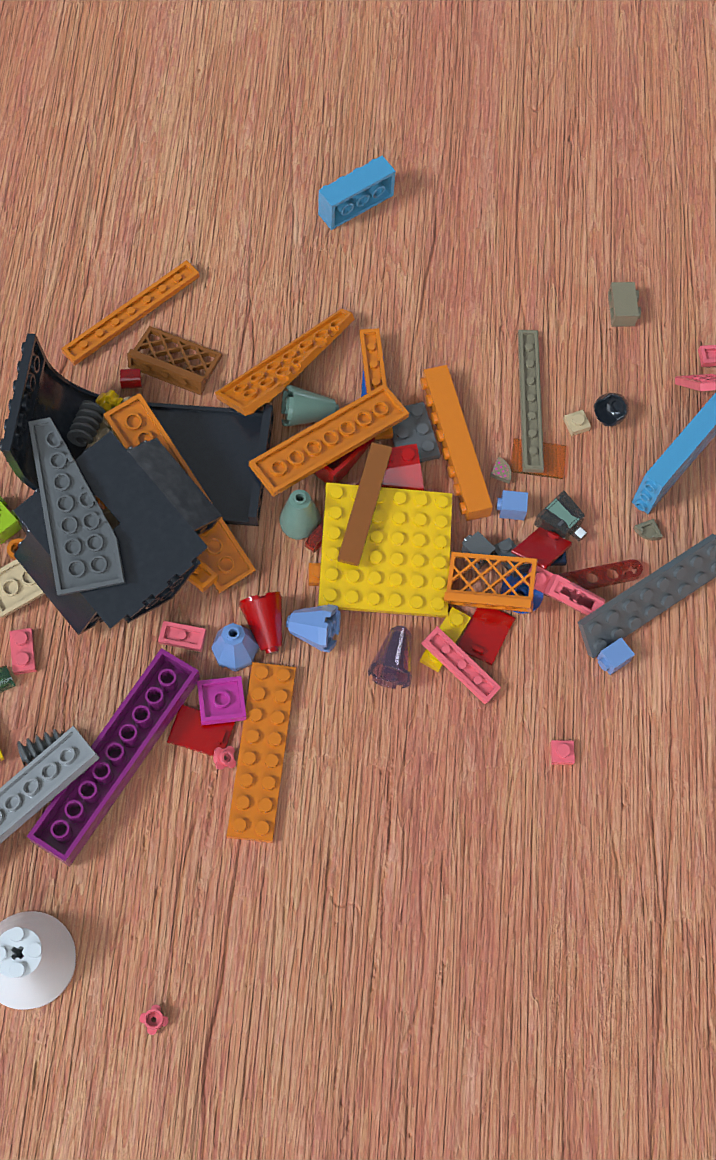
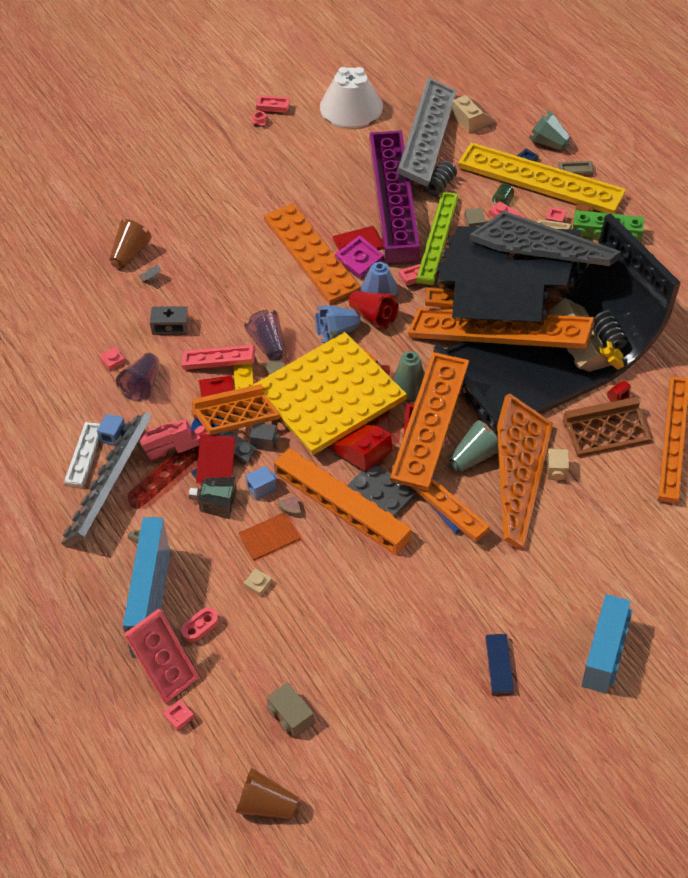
camera: 150 degrees right, 15 degrees down
(66, 659) = (474, 217): none -> dark tan brick
(117, 1034) = (273, 104): none -> coral plate
(120, 667) = (437, 238): none -> lime tile
(218, 757) = (330, 233): coral plate -> none
(249, 351) = (557, 464): none -> tan brick
(364, 504) = (365, 394): dark orange tile -> none
(412, 623) = (273, 366): none -> dark tan tile
(439, 242) = (499, 664): none -> dark blue tile
(454, 899) = (128, 243): none -> dark orange cone
(455, 841) = (150, 274): none -> light grey plate
(470, 745) = (169, 320): none -> dark grey brick
(530, 401) = (311, 576): dark tan tile -> none
(550, 697) = (139, 377): none -> cone
(611, 409) = (234, 604): black hair -> none
(648, 414) = (198, 625): none -> coral plate
(654, 653) = (83, 456): none -> white tile
(686, 254) = (267, 798): none -> dark orange cone

